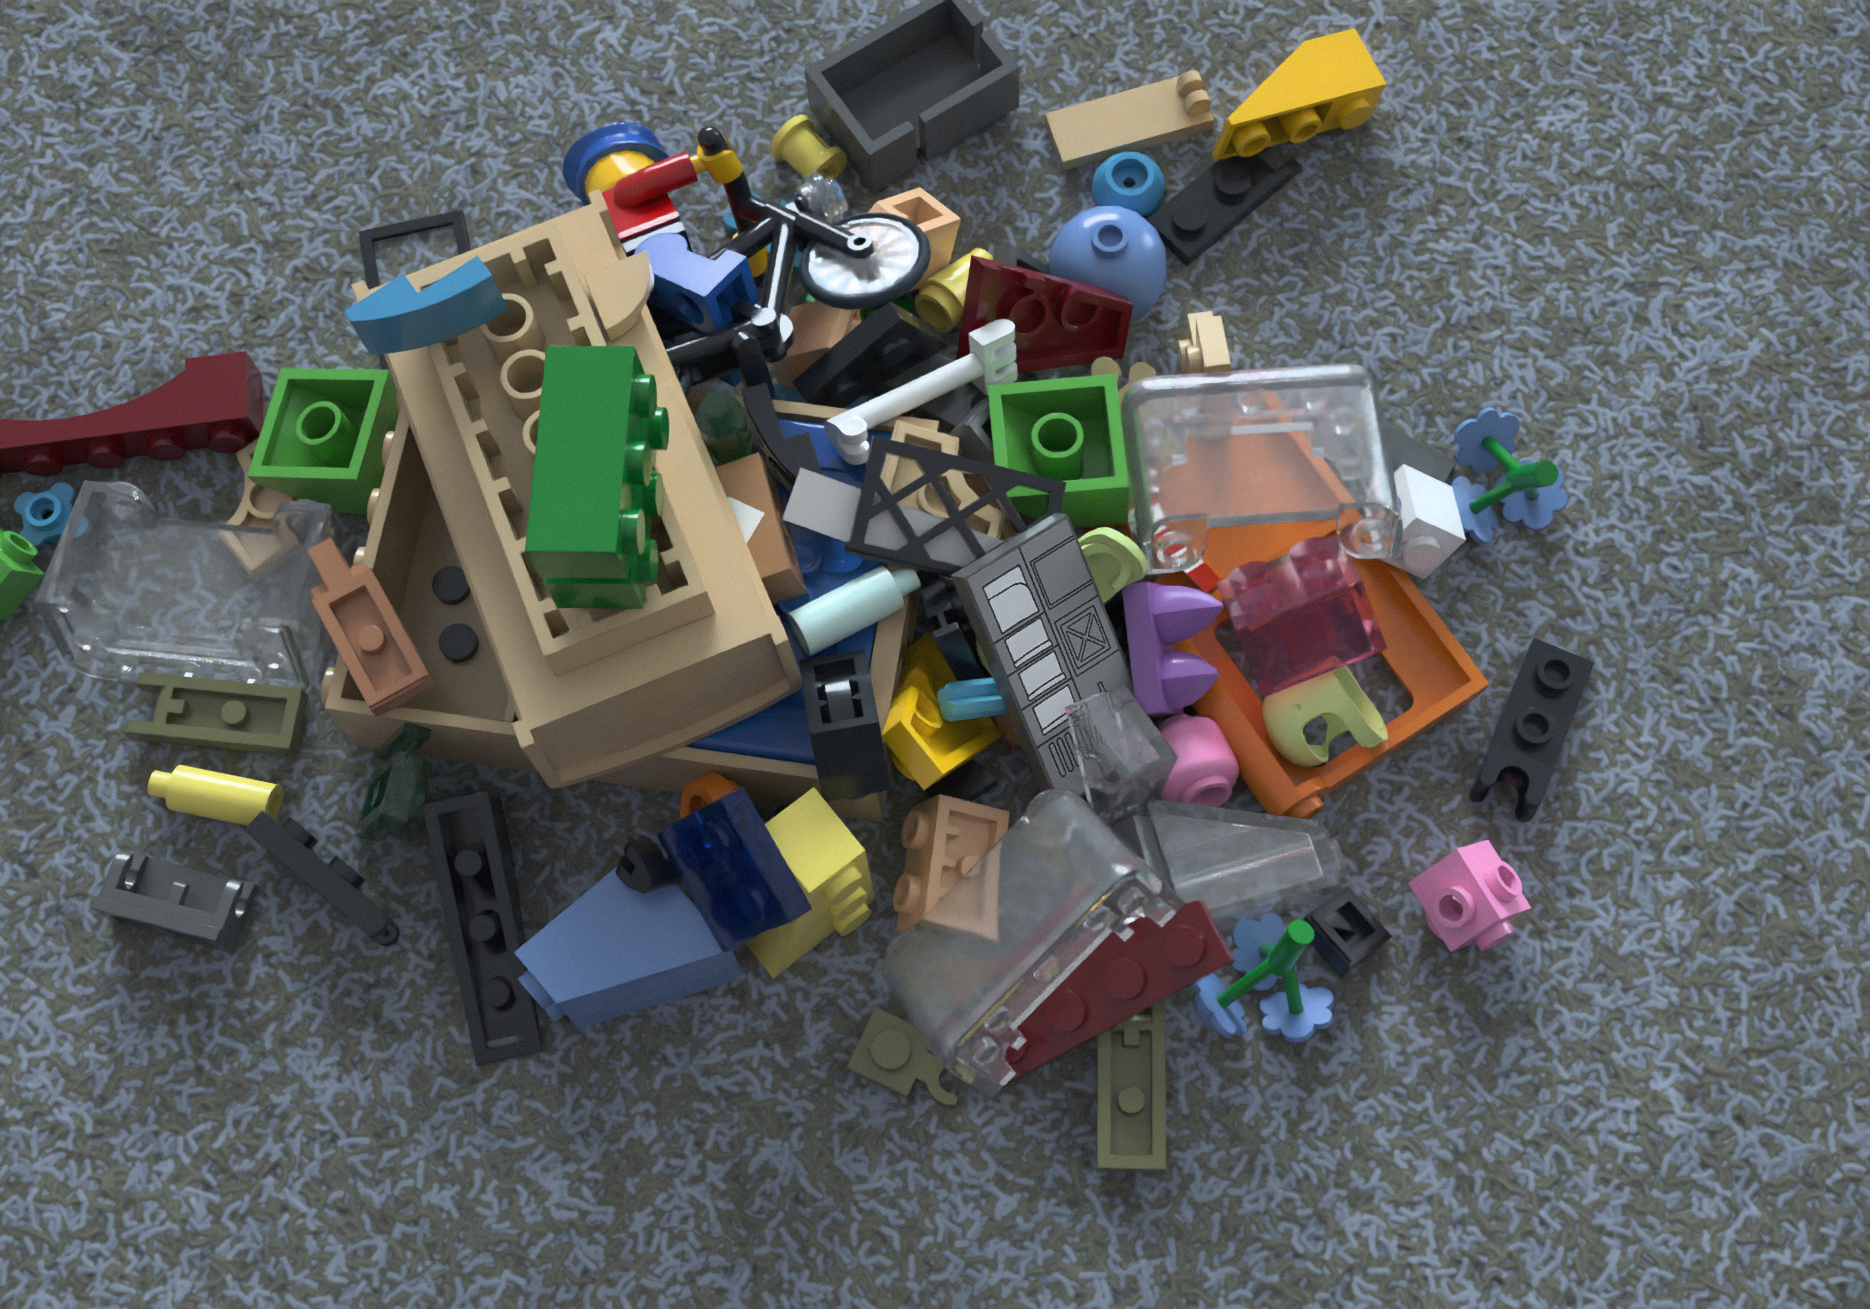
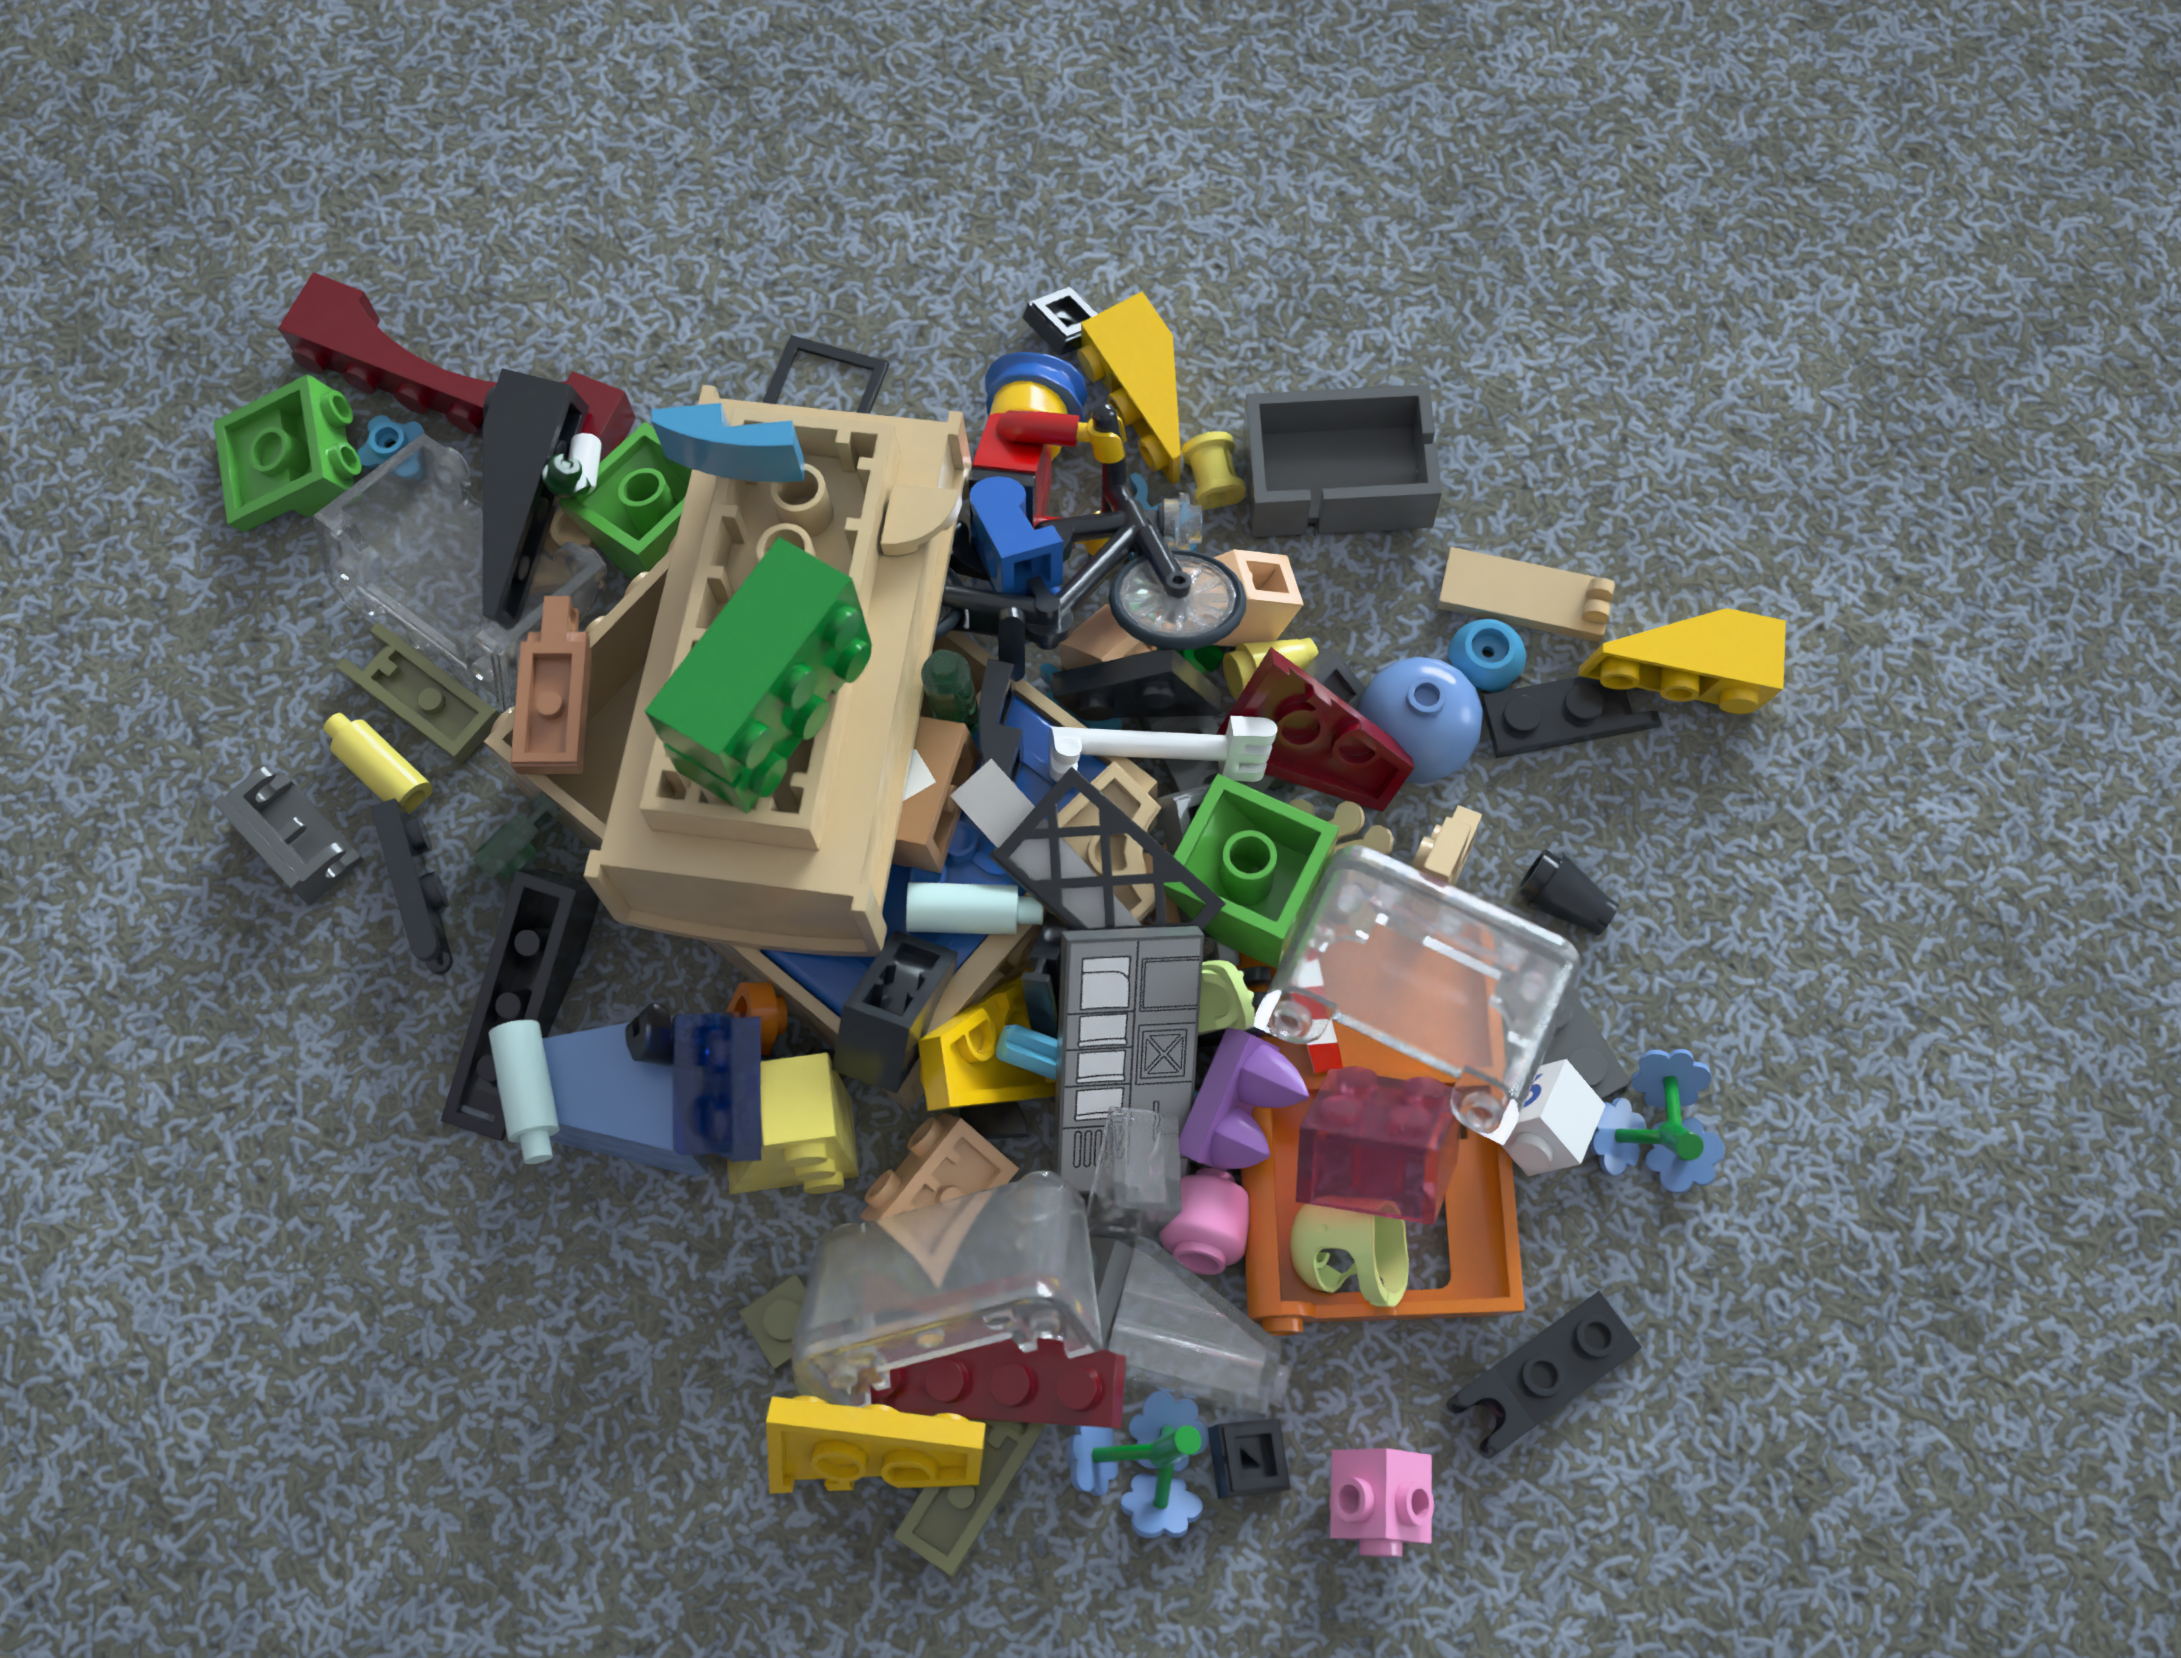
camera: 30 degrees right, 0 degrees up
(193, 441) = (522, 430): none -> black slope
(249, 439) = (578, 473): none -> arm
(560, 972) = (525, 1087): none -> light aqua cylinder
(598, 95) = (1059, 319): none -> black tile
(682, 93) = (1135, 361): none -> yellow slope
(1015, 1109) = (849, 1443): none -> yellow wing
(1312, 340) = (1566, 892): none -> black cone

